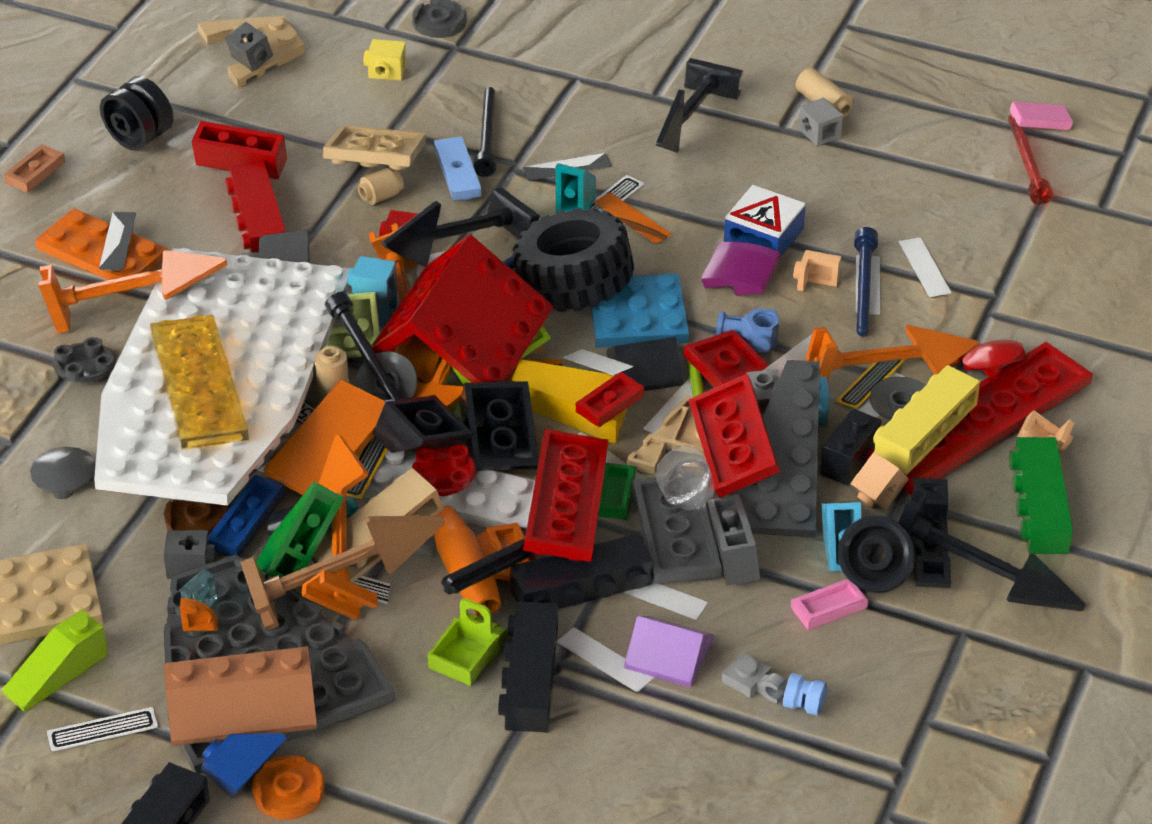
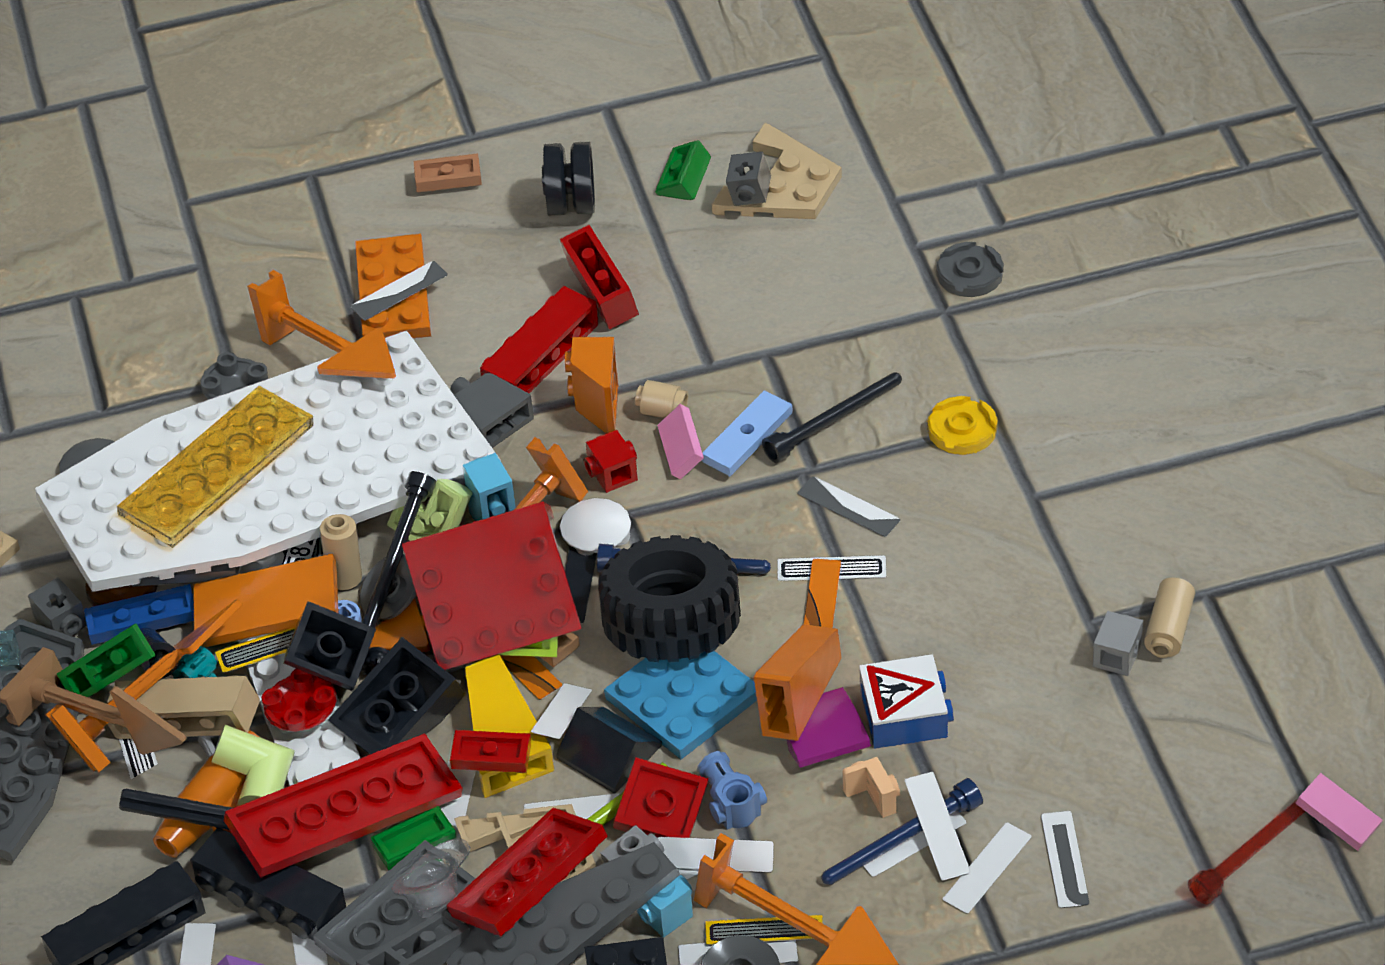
camera: 55 degrees right, 5 degrees up
(184, 77) = (684, 171): none -> green slope
(337, 197) = (594, 380): none -> orange slope
(374, 146) = (703, 357): tan plate -> none
(385, 59) = (852, 278): light yellow brick -> none
(416, 236) = (576, 472): black piece -> none
(421, 193) = (680, 441): none -> bright pink tile
(467, 644) = (111, 863): lime piece -> none
(483, 512) = (256, 757): none -> yellowish green brick
(570, 94) = (954, 432): none -> yellow tile
(574, 188) = (795, 532): teal slope -> none
(705, 79) = (953, 538): black piece -> none
(708, 246) = (795, 680): none -> orange slope
(878, 262) = (937, 826): none -> white sticker
(953, 234) = (1065, 859): none -> sticker

